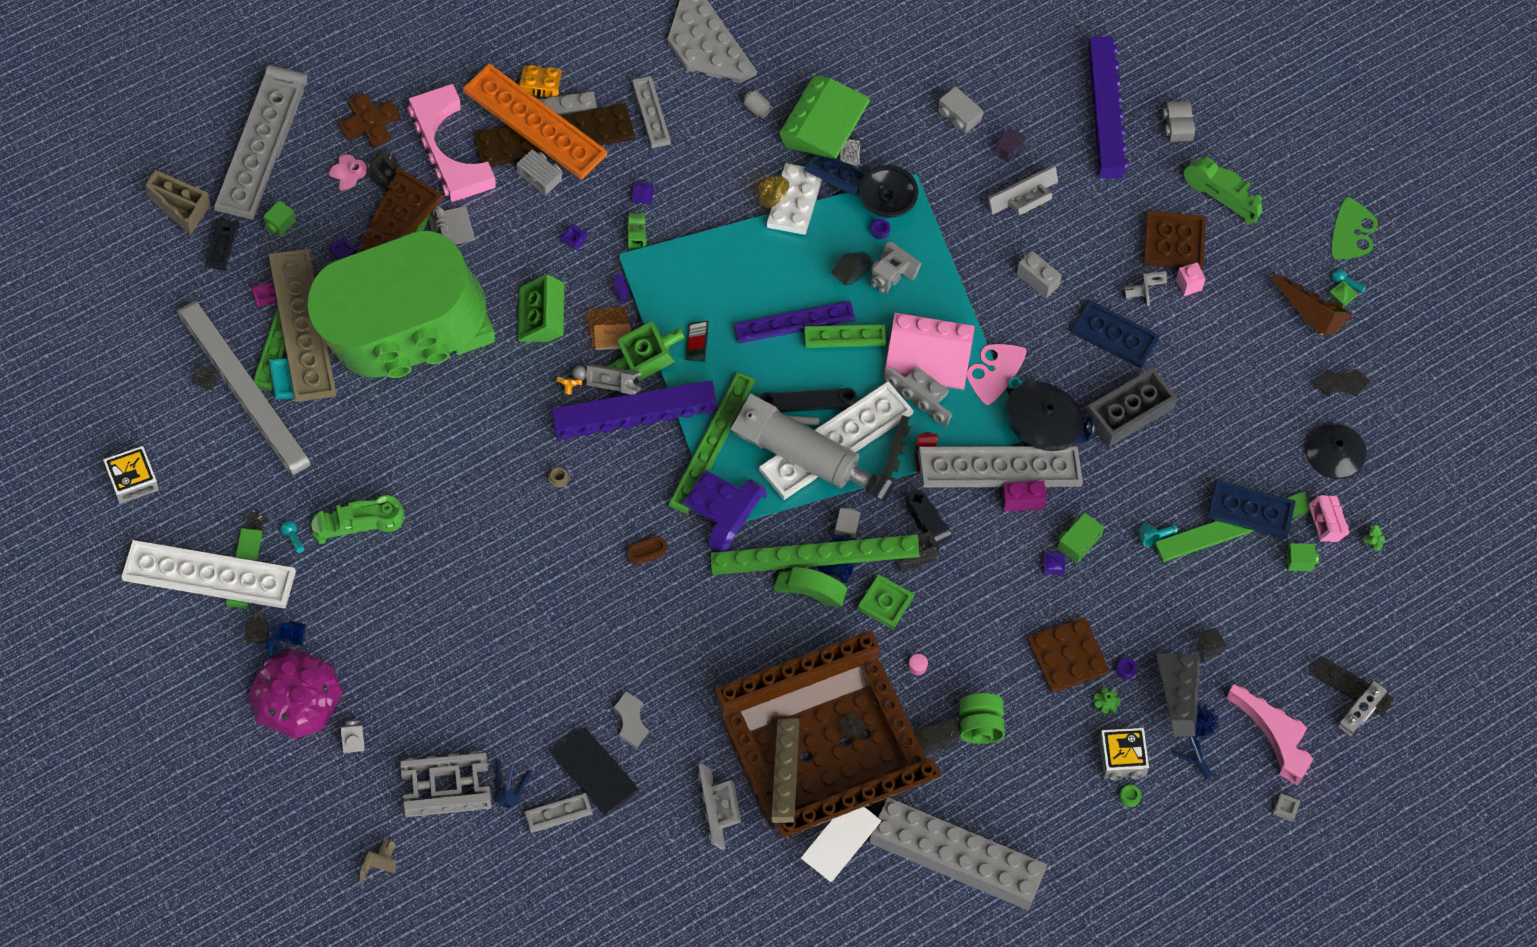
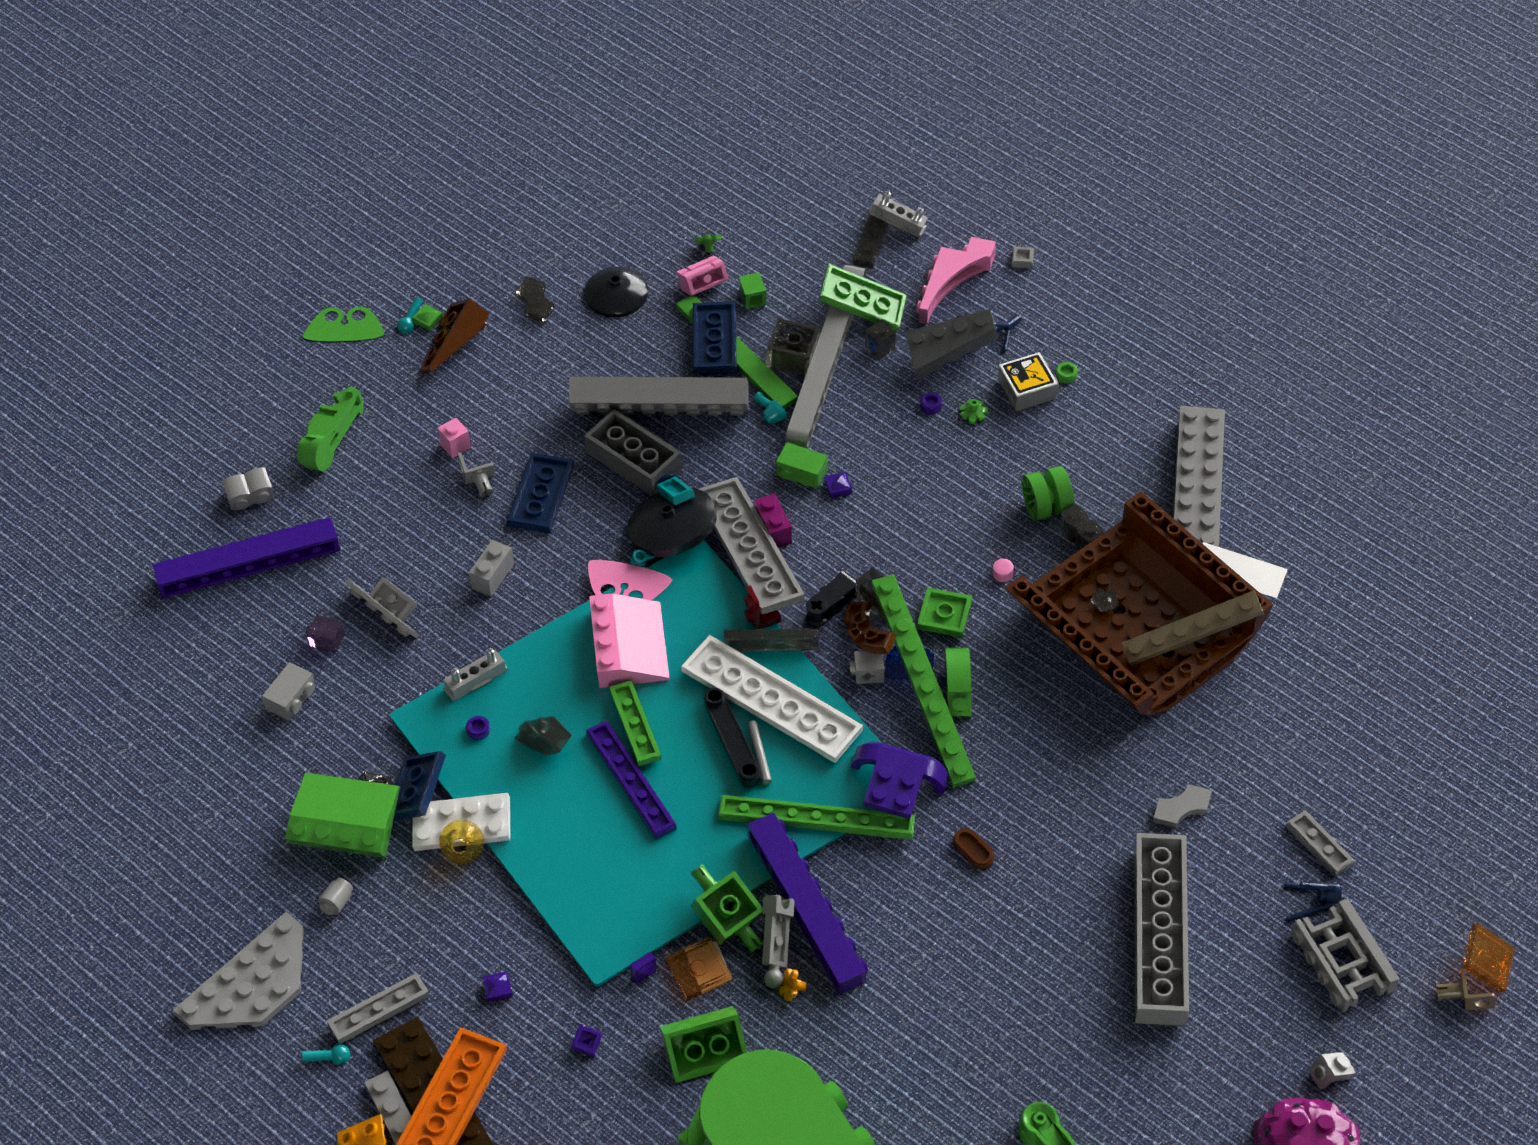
camera: 100 degrees left, 10 degrees down
(399, 890) = (1488, 957): none -> clear orange tile
(518, 653) = (1161, 929): none -> light grey brick
(539, 171) = (505, 1104): light grey brick -> none
(558, 472) = (918, 955): dark tan plate -> none
(595, 772) = (1257, 822): black tile -> none
(625, 82) = (338, 1054): none -> teal bar
(636, 230) = (555, 975): bright green leg -> none
(697, 341) = (682, 863): slope -> none
(720, 805) = (1241, 692): light grey bracket -> none
(770, 429) = (793, 752): light grey piece -> none
(879, 525) = (862, 633): none -> reddish brown tile
(892, 183) = (429, 712): black dish -> none
(893, 263) = (545, 698): light grey tile -> none
(922, 391) = (682, 632): light grey bracket -> none
(930, 236) = (474, 675): none -> light grey piece
(1068, 655) = (937, 451): reddish brown plate -> none
(1071, 421) = (675, 490): none -> teal tile
(1174, 239) = (406, 463): reddish brown plate -> none
(1186, 440) = (659, 395): none -> light grey brick
(1207, 597) = (820, 372): none -> light grey beam
(1216, 565) = (792, 346): none -> clear smoke brick
(1261, 640) = (862, 297): none -> bright green tile

